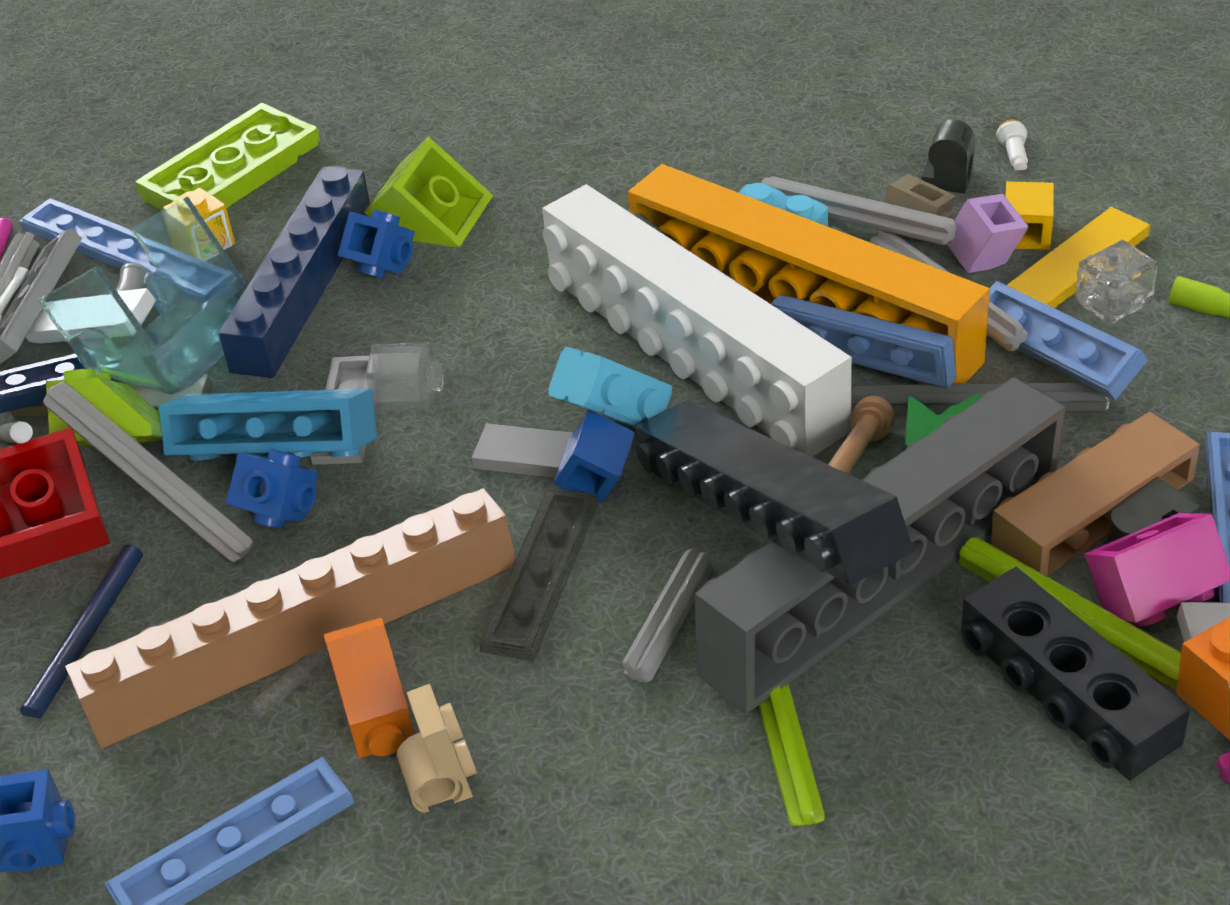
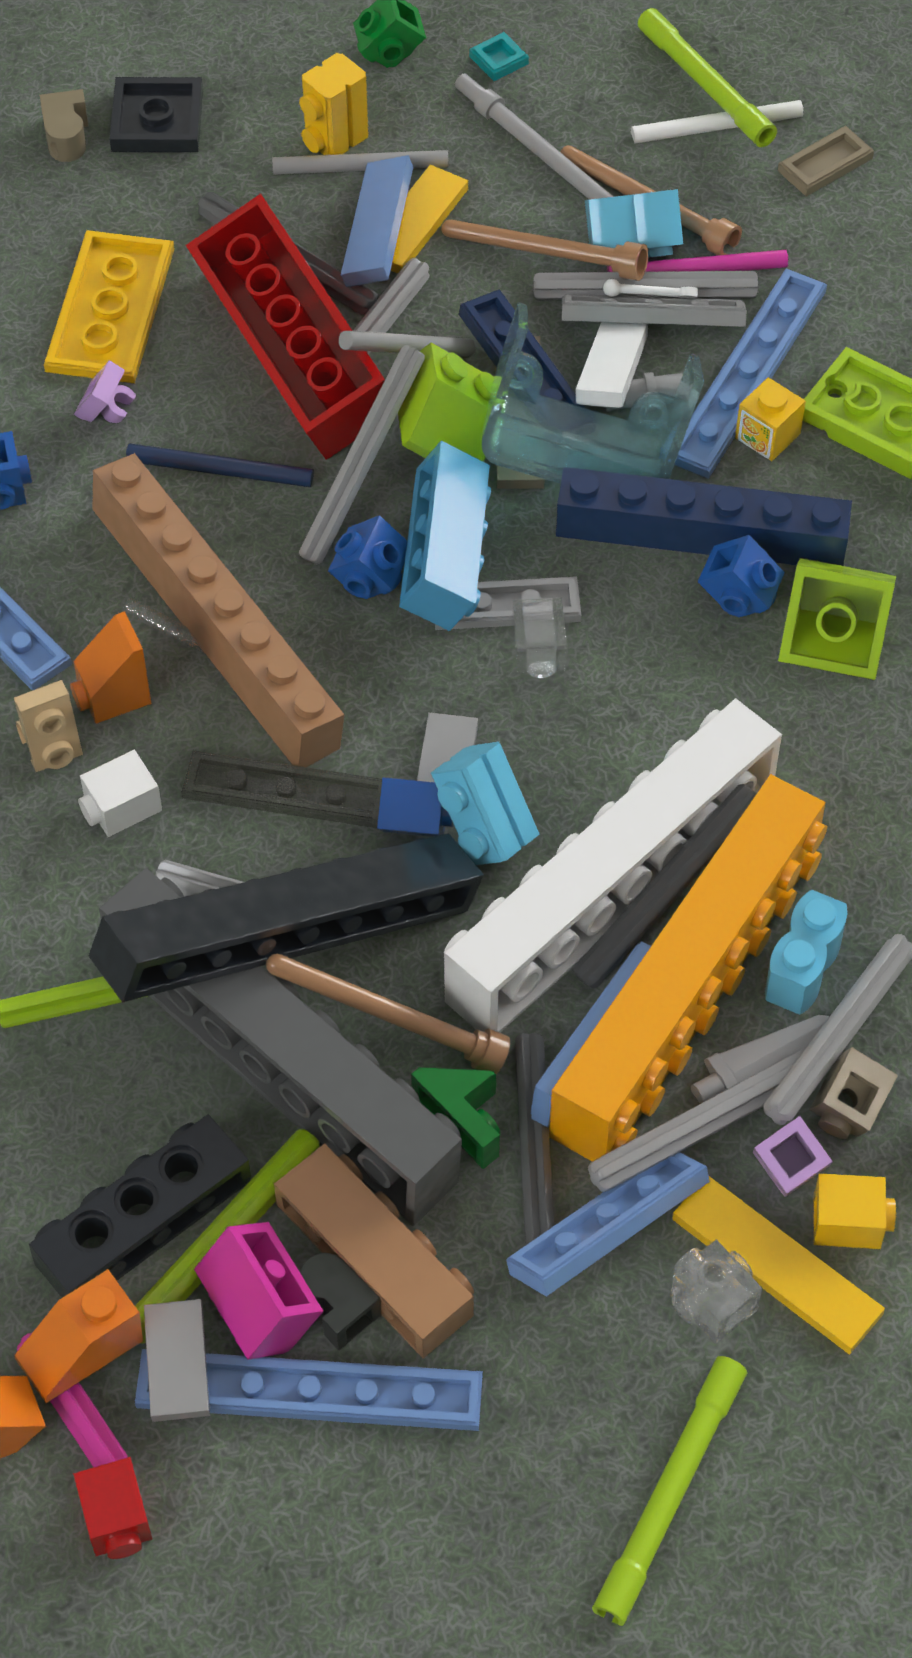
camera: 80 degrees right, 15 degrees up
(532, 697) = (119, 794): none -> white brick

